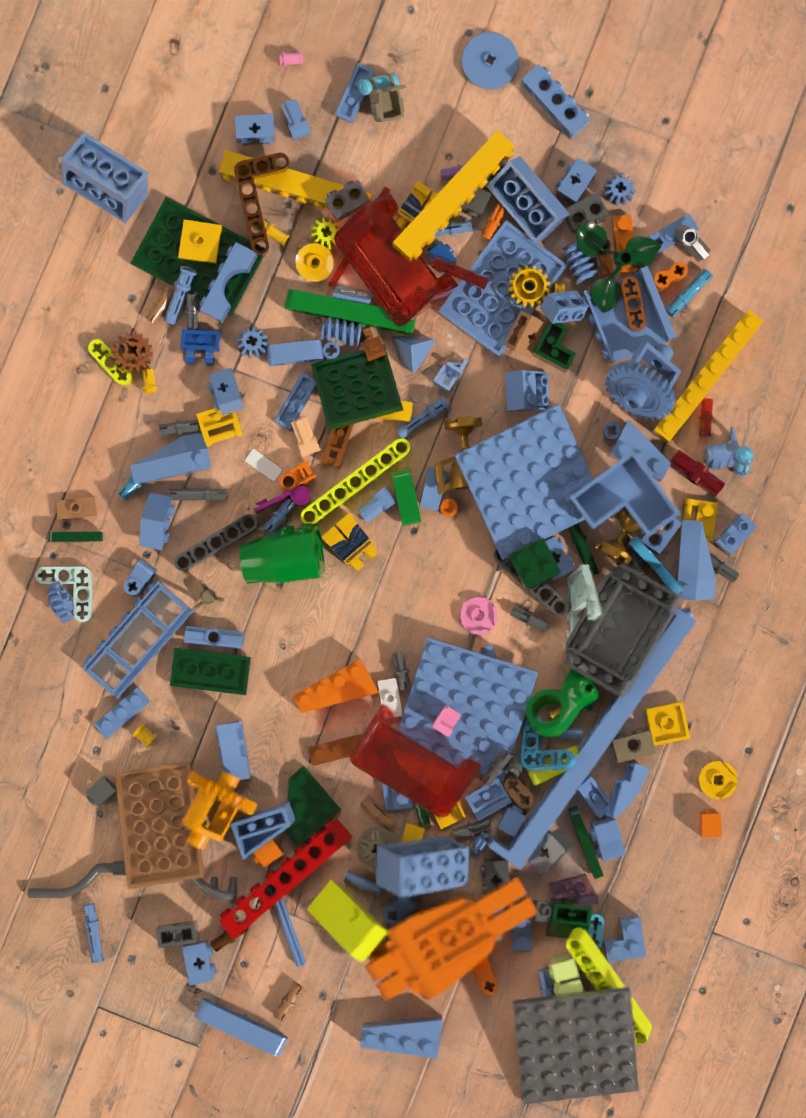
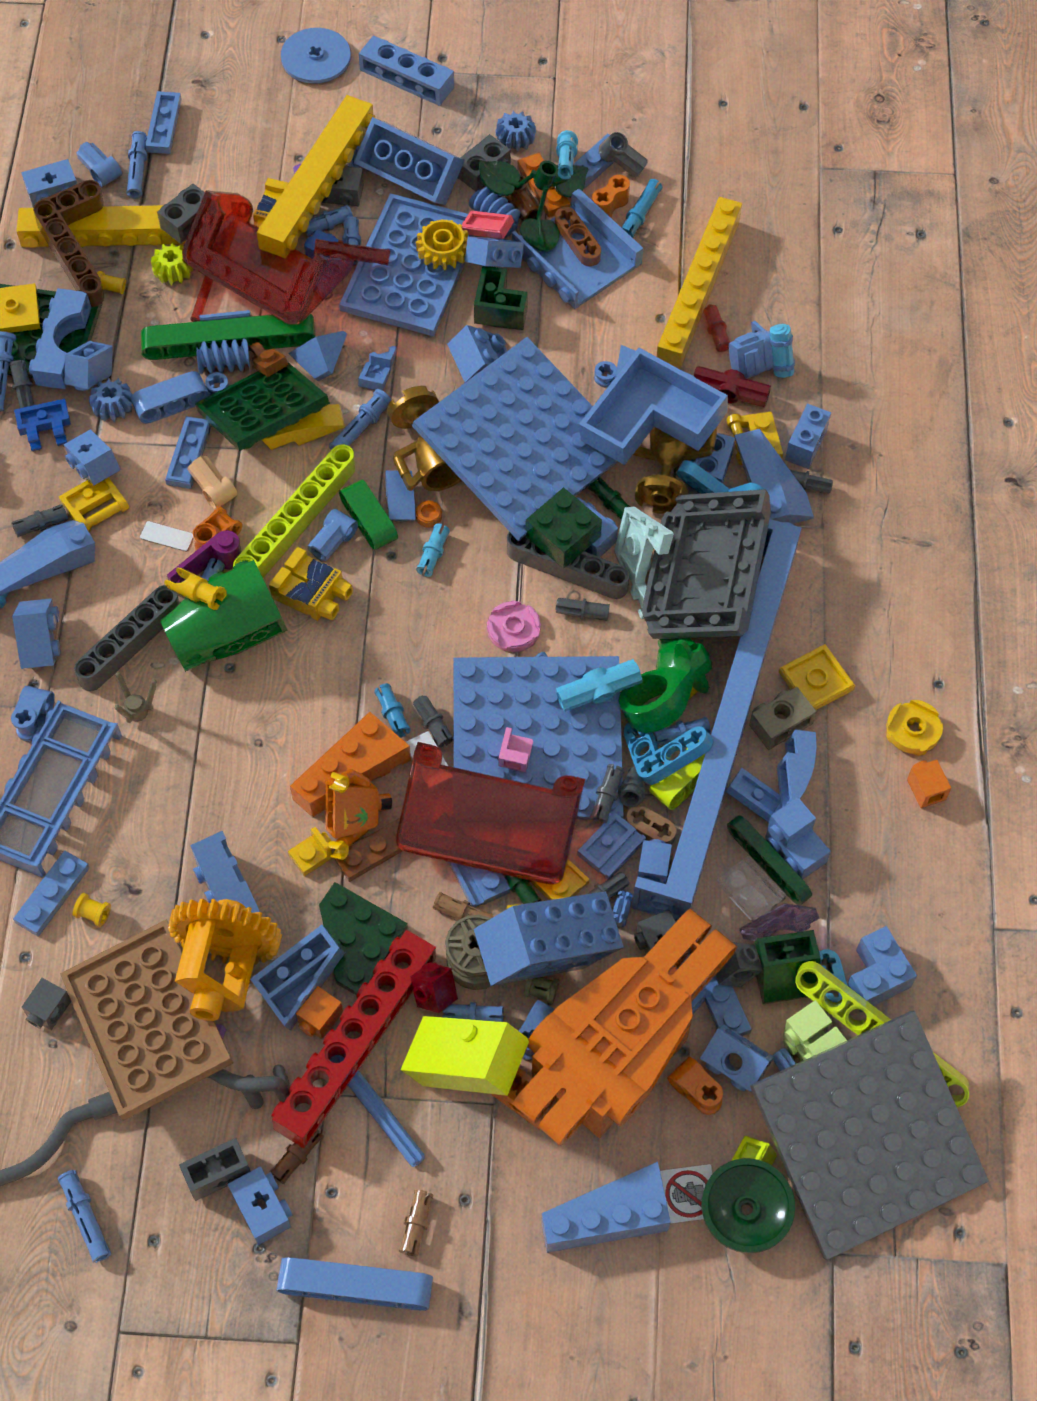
camera: 20 degrees left, 25 degrees down
(198, 494) = (88, 589): dark grey pin -> none
(201, 635) = (140, 754): medium blue piece -> none
(210, 671) = (164, 799): dark green plate -> none
(242, 312) = (88, 365): none -> medium blue brick
(269, 545) = (197, 589): none -> yellow piece
(291, 58) = (75, 109): bright pink pin -> none
(294, 739) = (311, 852): none -> yellow bracket
(308, 269) = (162, 285): yellow dish -> none
(326, 724) = (351, 809): none -> orange torso
(327, 120) = (137, 157): none -> medium blue pin
(337, 442) = (257, 476): dark orange plate -> none
(343, 862) = (434, 987): none -> dark red brick
(377, 654) = (392, 710): none -> dark azure pin
(384, 96) = (200, 111): dark tan piece -> none
(442, 538) = (433, 550): none -> medium azure pin
(457, 1035) = (684, 1191): none -> sticker
(464, 252) = (351, 232): none -> medium blue pin
(487, 1074) = (751, 1184): none -> dark green dish
(493, 222) = (376, 201): orange axle -> none
(503, 1027) = (755, 1149): none -> neon yellow slope
(516, 694) = (599, 685): none -> medium azure piece
(523, 971) = (754, 1059): none -> medium blue brick
(525, 334) = (456, 295): medium nougat brick -> none
(556, 844) = (733, 868): dark grey brick -> none
(567, 279) = (487, 224): none -> coral tile
(573, 192) = (461, 132): medium blue brick -> none
(640, 389) = (623, 288): medium blue piece -> none
(651, 224) = (566, 151): none -> medium azure pin

